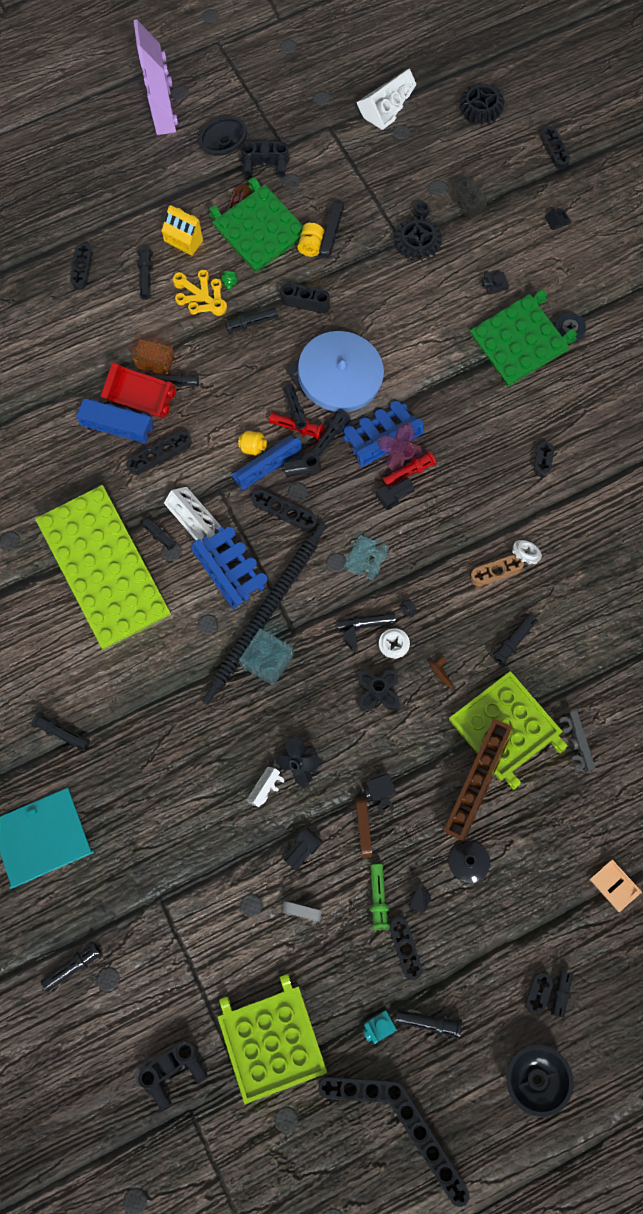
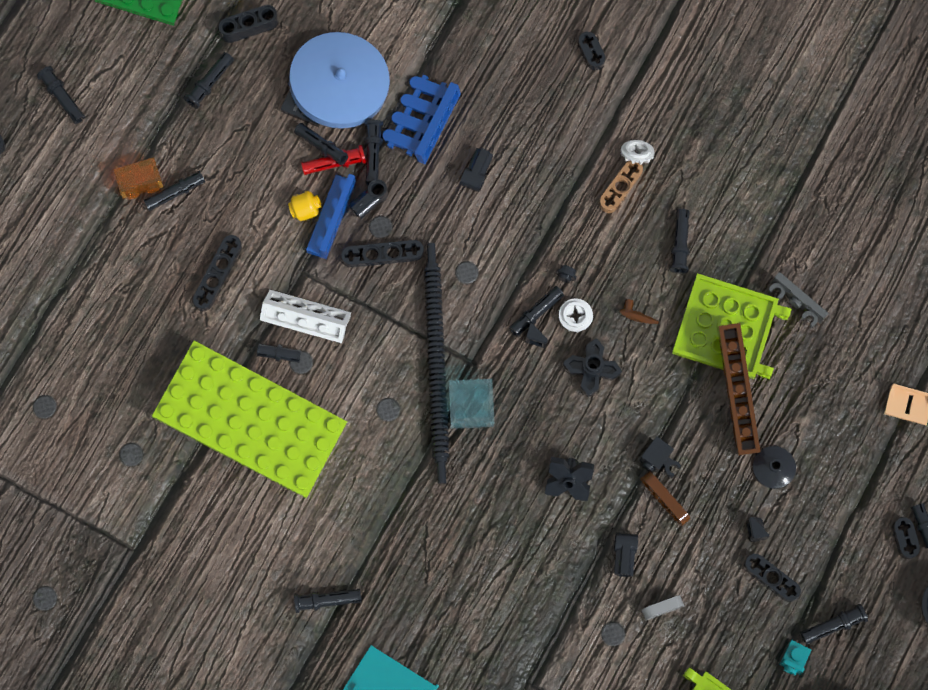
camera: 45 degrees left, 5 degrees up
(115, 420) = (149, 267): blue brick -> none
(138, 391) = (153, 223): red panel -> none
(182, 230) = (69, 26): yellow slope -> none
(200, 295) = (137, 83): yellow plant -> none
(213, 565) = (369, 353): blue fence -> none
(229, 279) = (155, 50): green plate -> none
(266, 782) = (551, 522): white plate -> none
(361, 554) = (486, 251): clear light blue plate -> none
(379, 908) = (726, 558): bright green pin -> none
(400, 448) = (454, 123): clear pink plant -> none
(416, 465) = (478, 131): red pin -> none

